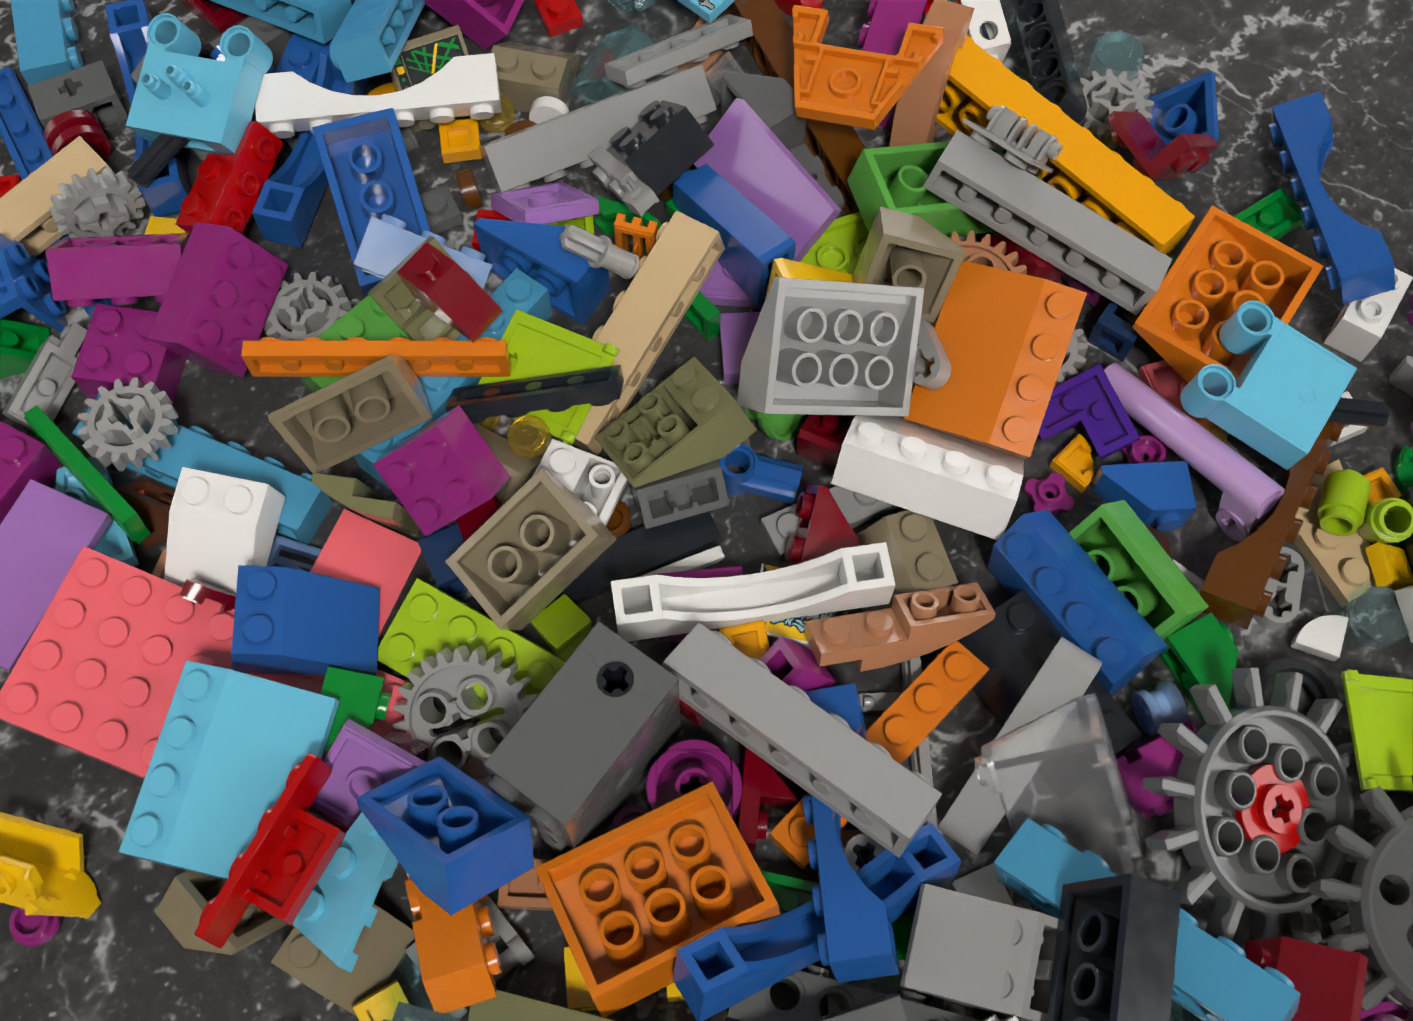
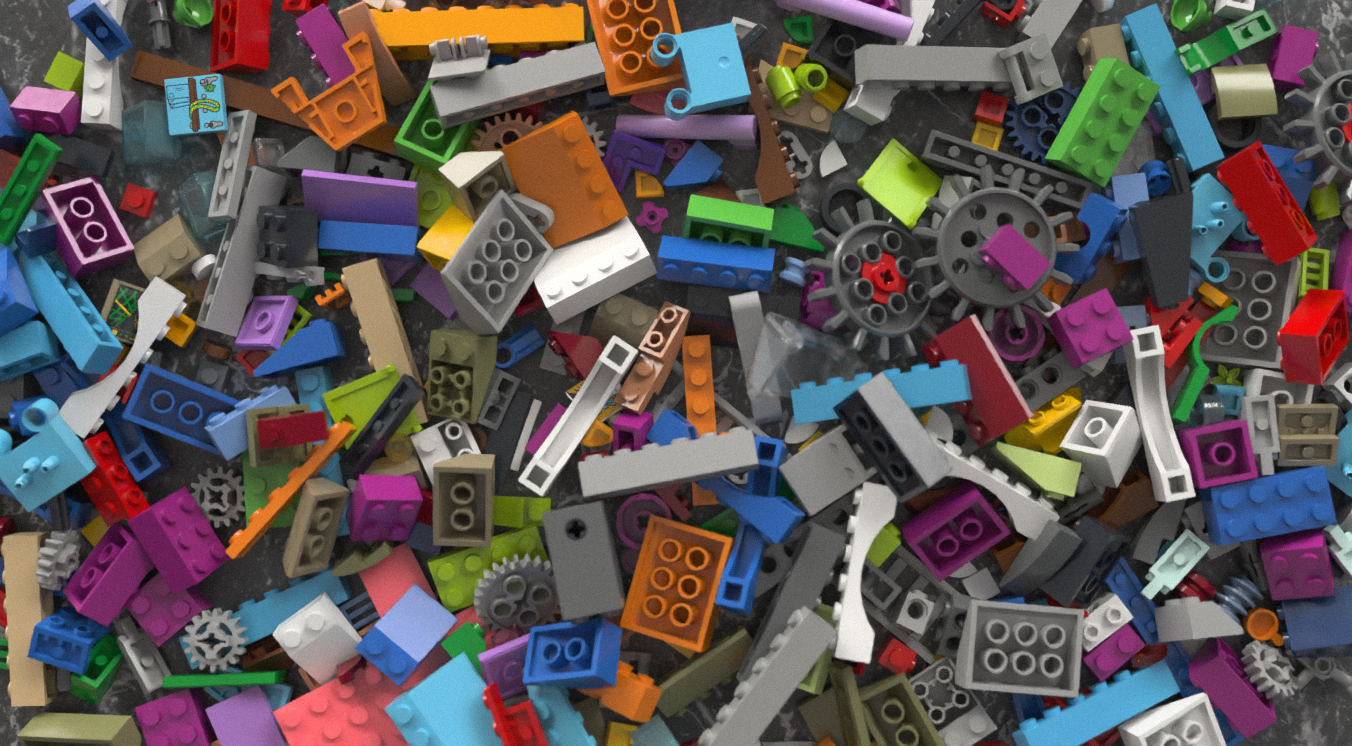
camera: 40 degrees left, 20 degrees up
(599, 251) = (332, 330): light grey axle -> none

